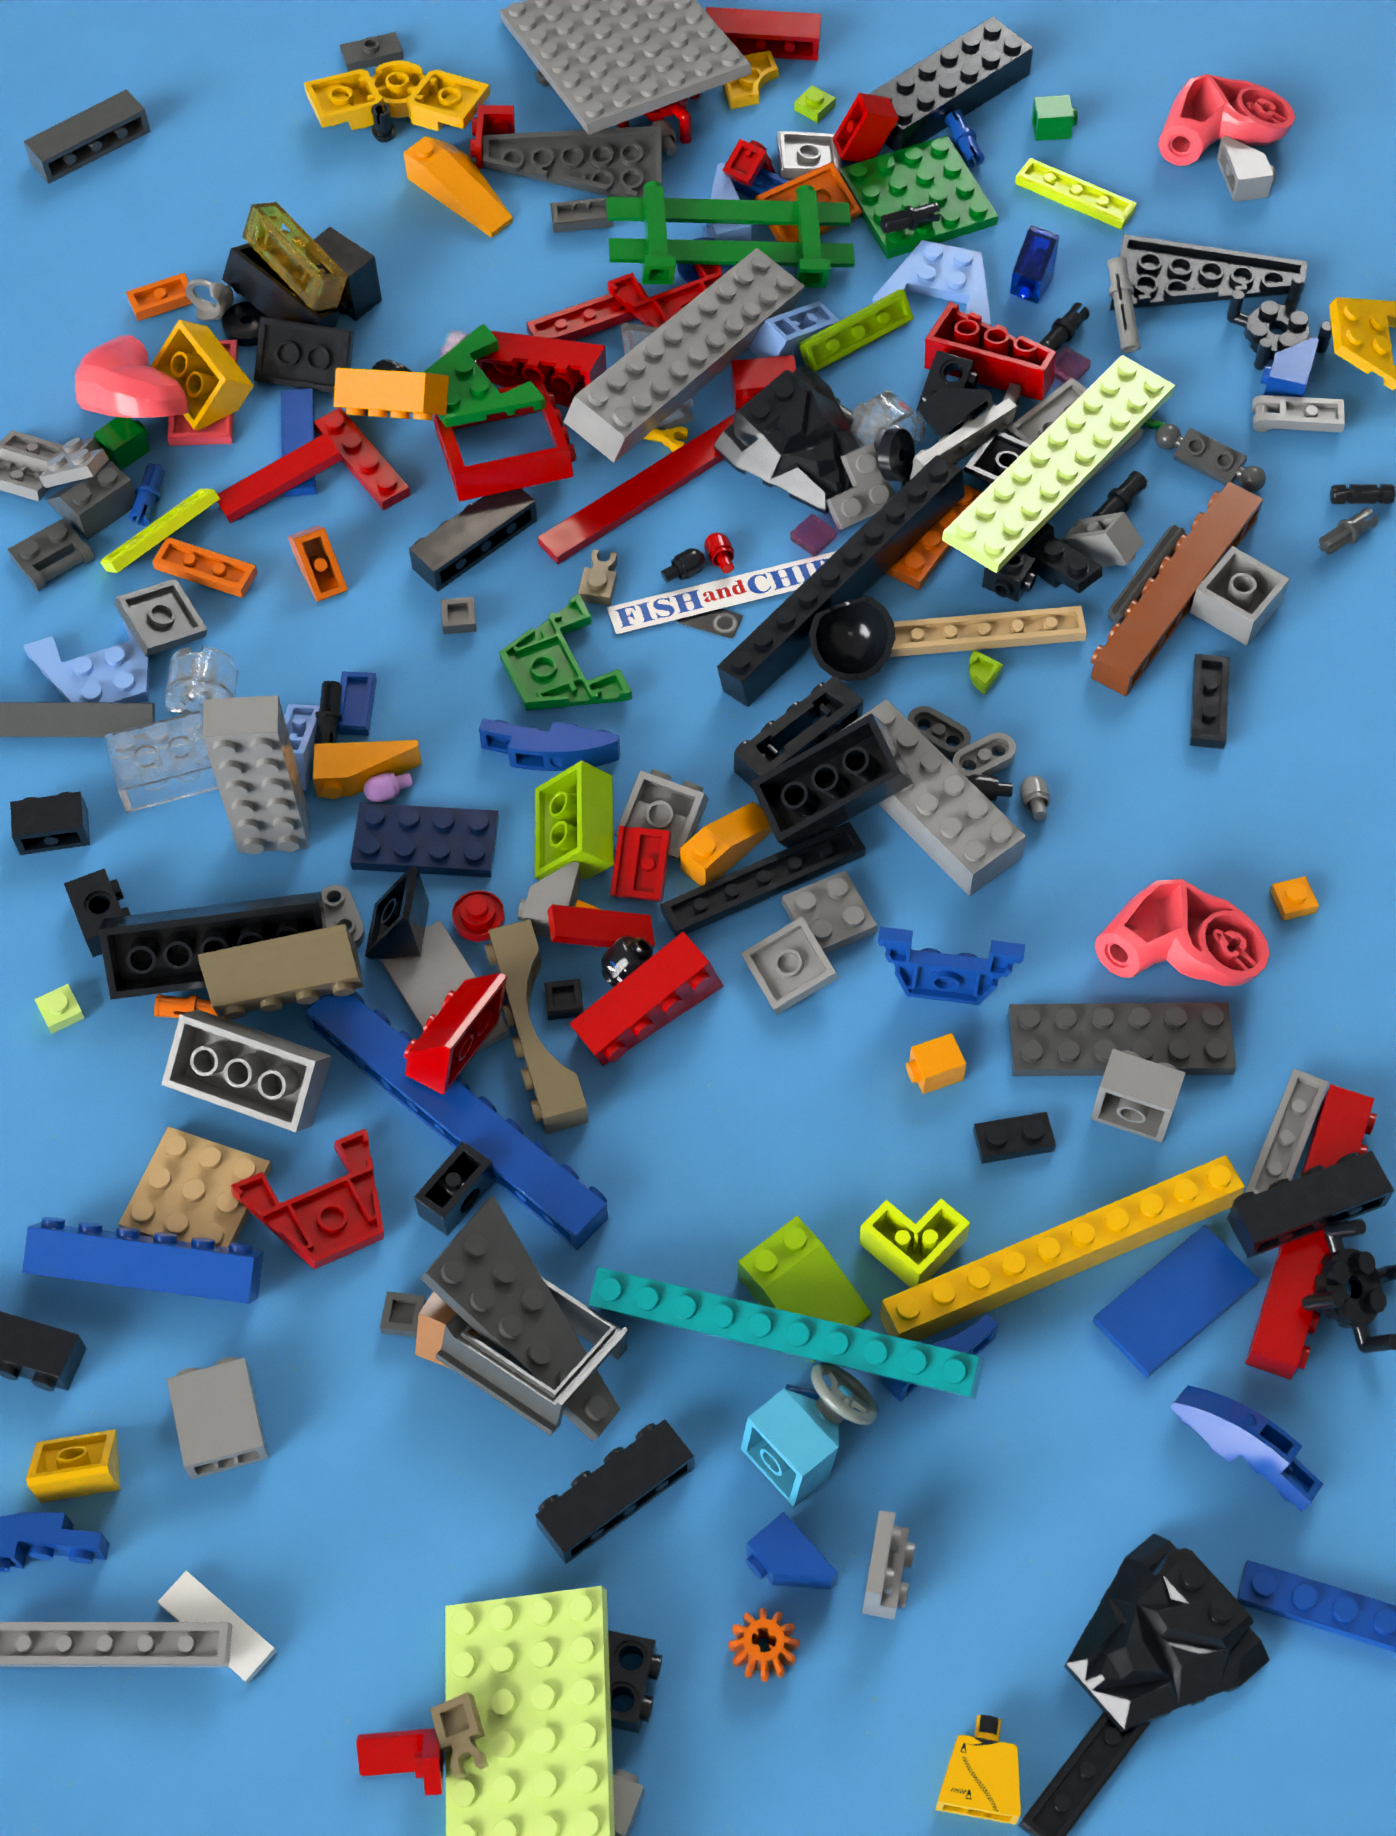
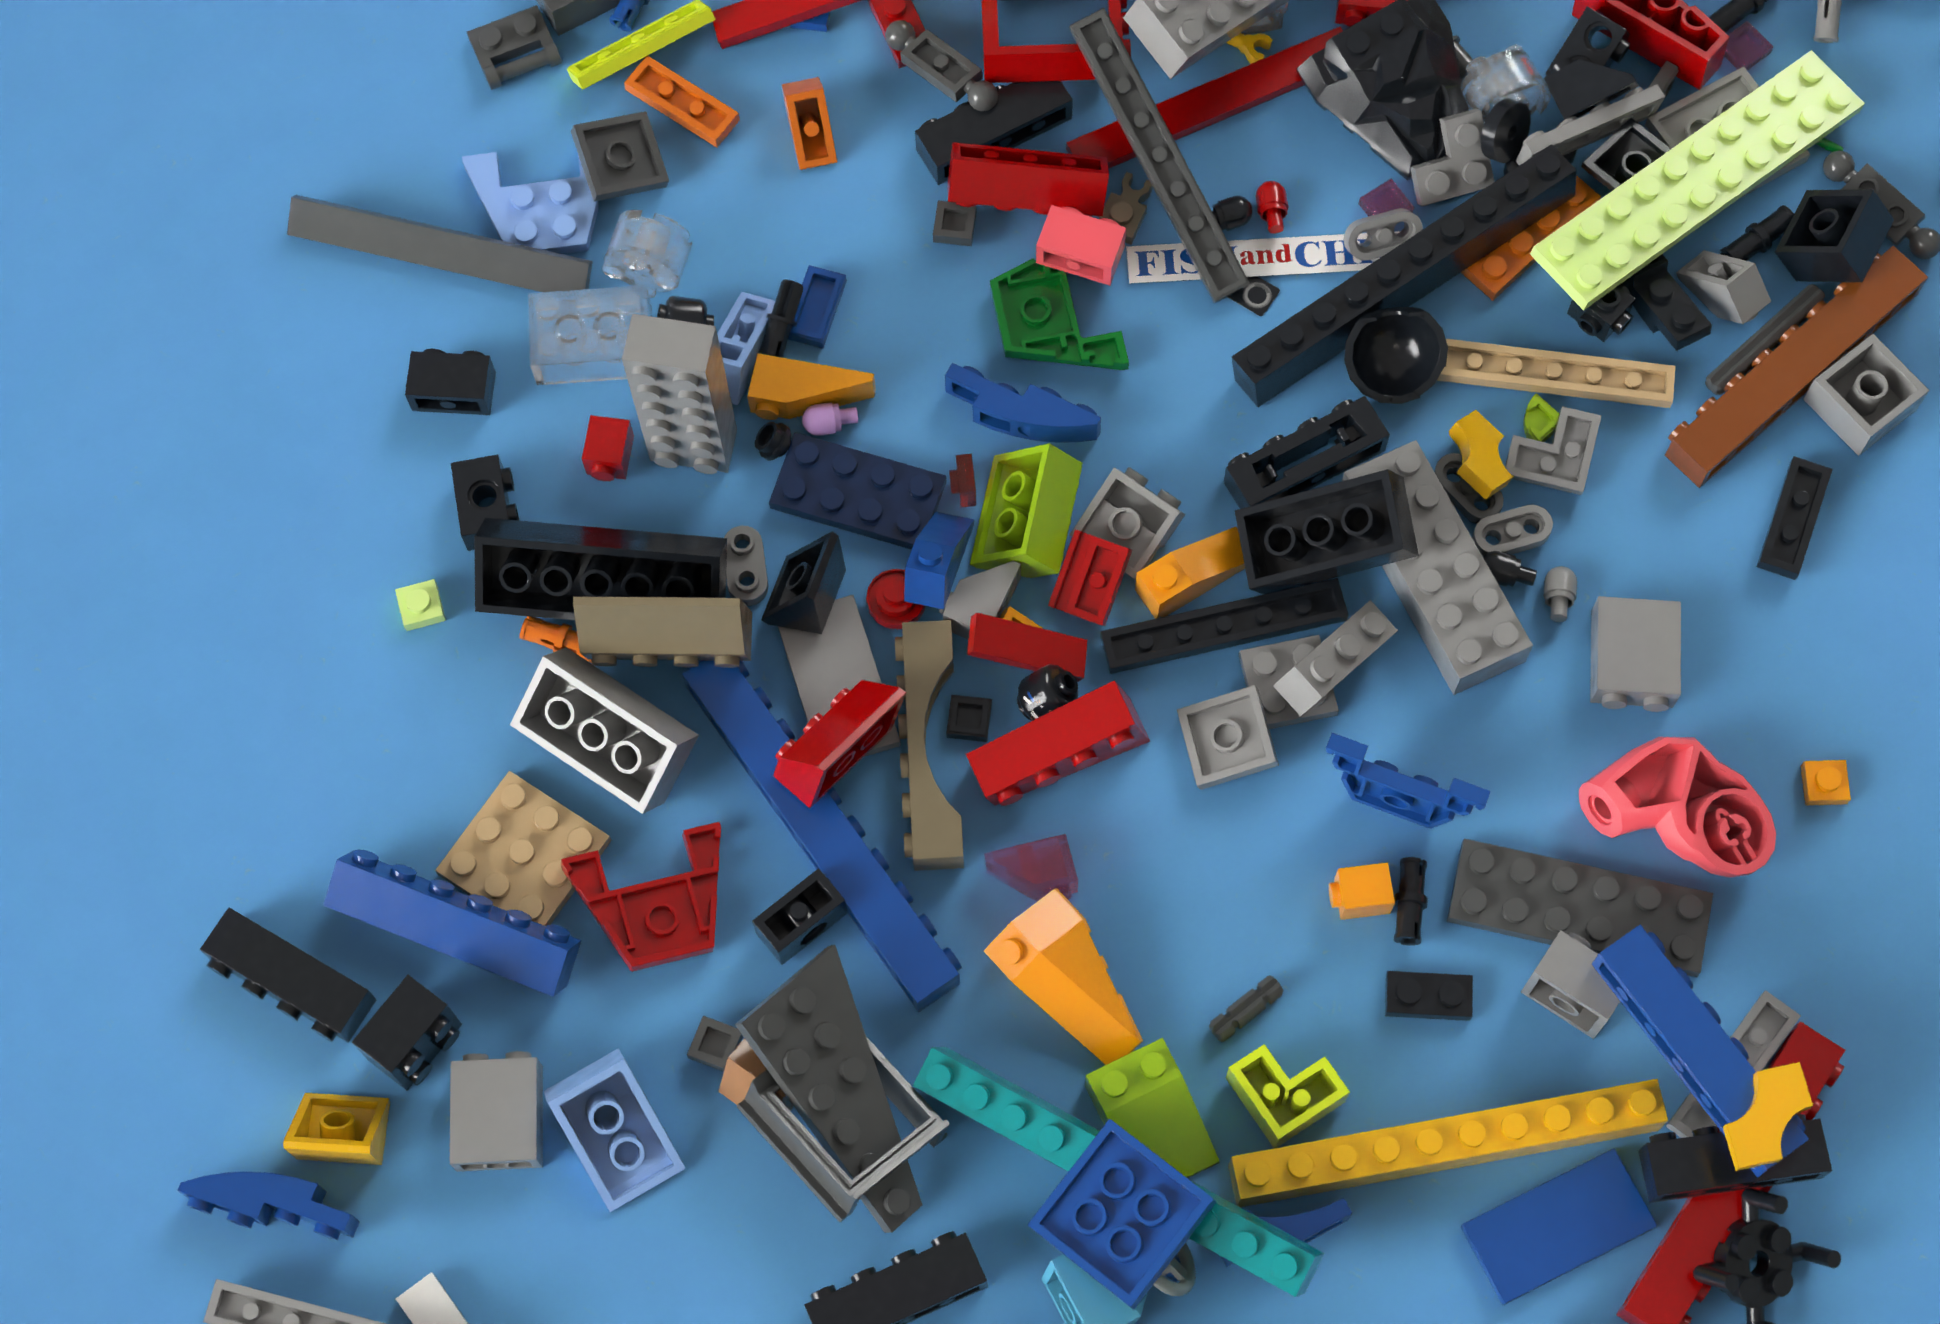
camera: 15 degrees right, 10 degrees up
(122, 1363) = (408, 1033): none -> black brick
(199, 846) = (607, 448): none -> red brick
(328, 1407) = (613, 1130): none -> light blue slope
(342, 812) = (773, 440): none -> black plate
(419, 496) = (941, 65): none -> dark grey plate
(506, 875) = (936, 559): none -> blue slope
(512, 568) = (1026, 179): none -> red brick
(514, 810) = (963, 480): none -> clear red plate
(569, 607) = (1081, 244): none -> coral brick
(618, 527) = (1159, 155): none -> dark grey tile
(651, 1106) = (1035, 867): none -> clear pink slope
(694, 1180) = (1059, 968): none -> light orange wedge
(801, 1359) = (1122, 1213): none -> blue plate
(813, 553) = (1380, 233): none -> light grey plate
(861, 1182) = (1246, 1008): none -> dark grey axle
(864, 880) = (1335, 658): none -> light grey brick
(941, 703) = (1480, 455): none -> yellow tile
(978, 1064) = (1410, 901): none -> black pin
(1009, 697) = (1559, 464): none -> light grey plate
(1111, 829) = (1635, 653): none -> light grey brick
(1180, 482) = (1834, 235): none -> black brick
(1257, 1115) = (1686, 1031): none -> blue brick
(1326, 1165) = (1777, 1098): none -> yellow tile

